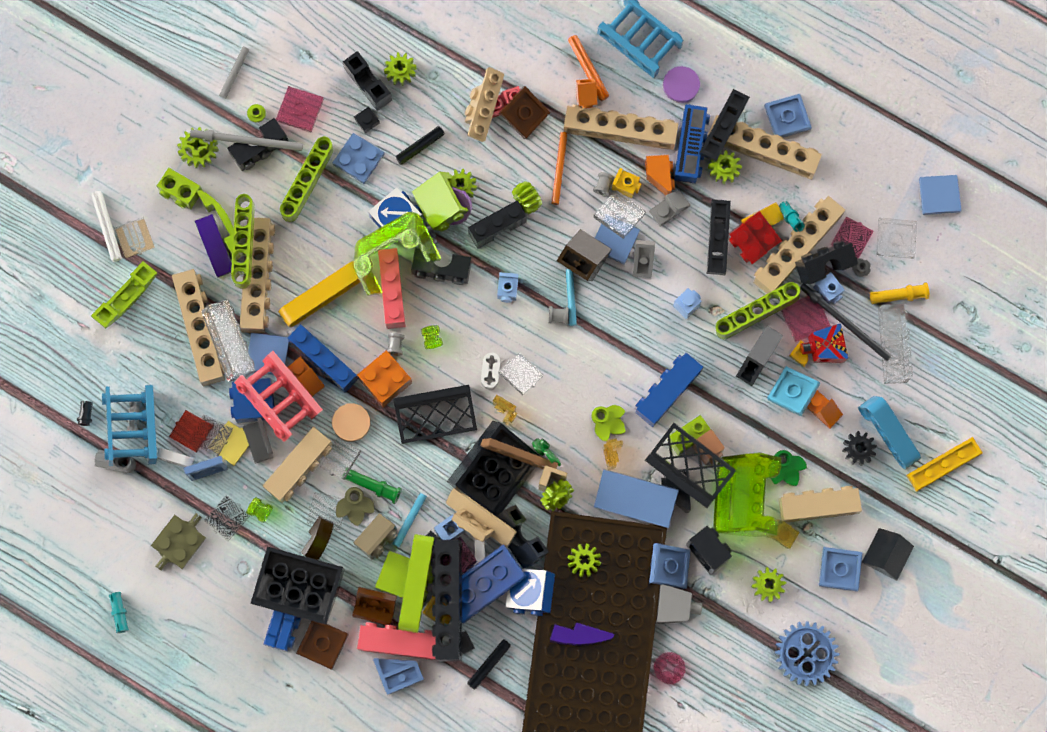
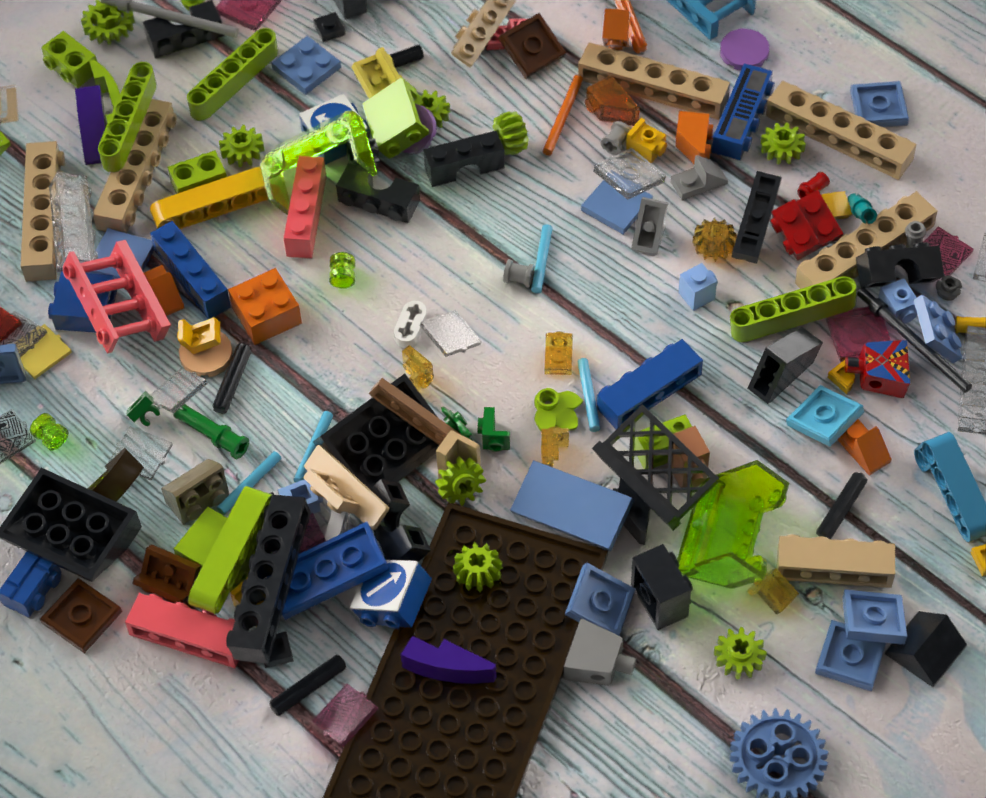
camera: 15 degrees right, 20 degrees down
(258, 441) = (75, 353): dark grey panel -> none
(297, 465) = (116, 385): tan brick -> none
(308, 279) = (196, 172): none -> lime brick
(319, 478) = (141, 407): none -> green tile
(334, 248) = (241, 146): none -> lime gear
(345, 414) = (199, 336): none -> yellow bracket
(355, 509) = (178, 455): olive plate -> none
(375, 439) = (231, 378): none -> black axle
(395, 344) = (292, 268): light grey bush -> none
(397, 673) = (174, 672): medium blue wing -> none
(418, 164) = (376, 72): none -> light yellow bracket
(433, 397) = (316, 338): black fence -> none
(446, 487) = (321, 428): none -> medium azure bar
(507, 279) = (459, 230): light blue brick -> none
(520, 682) = (345, 715): none -> clear pink piece
(564, 446) = (492, 439): none -> green bracket
(584, 255) = (569, 209): dark brown slope -> none
(593, 153) = (611, 102): none -> clear orange slope
(600, 376) = (558, 353): none -> clear yellow bracket
(627, 403) = (588, 393): none -> medium azure bar
(665, 676) = (561, 749): clear pink gear -> none
(692, 267) = (714, 239): none -> clear yellow gear
(724, 125) = (790, 90): black hinge -> none
(752, 200) = (818, 182): none -> red pin
(789, 470) = (798, 514): green plate -> none
(816, 459) = (842, 505): none -> black axle
(832, 233) = (915, 233): none -> light grey pin
(852, 541) = (874, 617): none -> medium blue plate
(860, 309) = (938, 328): none -> medium blue plate
(866, 448) = (898, 496): black gear -> none

